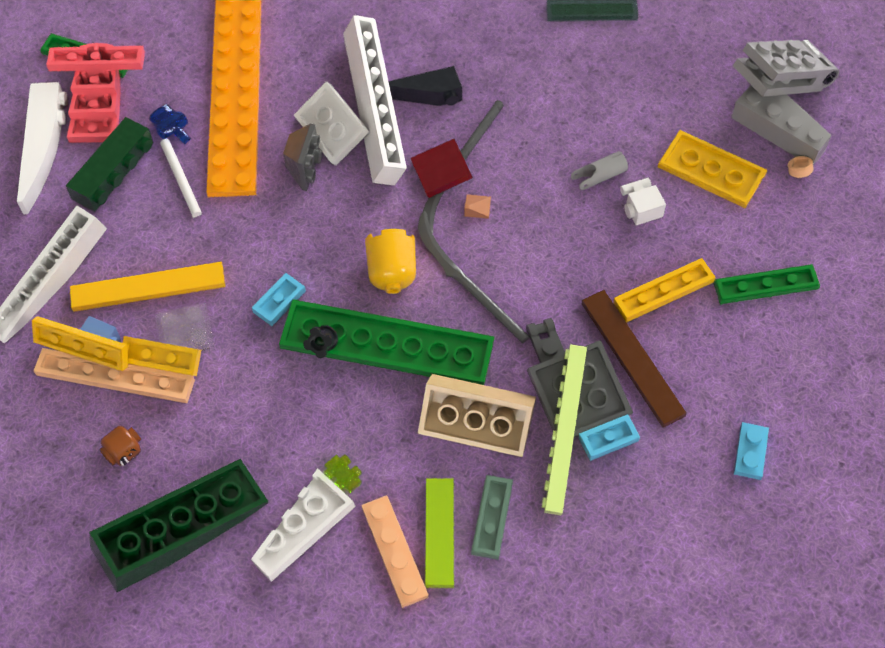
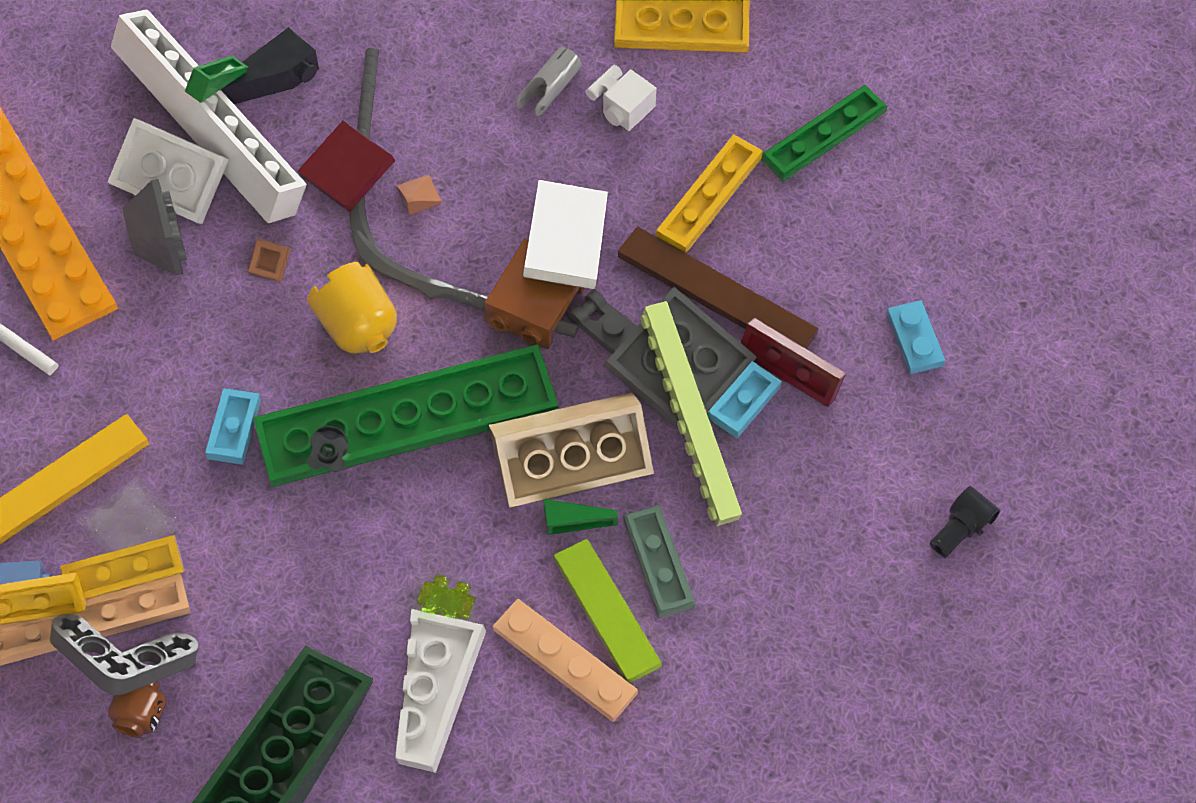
camera: 30 degrees left, 0 degrees up
(158, 422) = (117, 670): none -> dark grey beam
(361, 205) = (269, 259): none -> nougat slope
(387, 76) = (213, 76): none -> green piece
(451, 459) = (571, 517): none -> green piece
(511, 302) = (527, 305): none -> dark orange panel
(551, 273) = (566, 234): none -> white tile
(655, 428) = (793, 362): none -> dark red plate
(717, 592) = (969, 515): none -> black pin

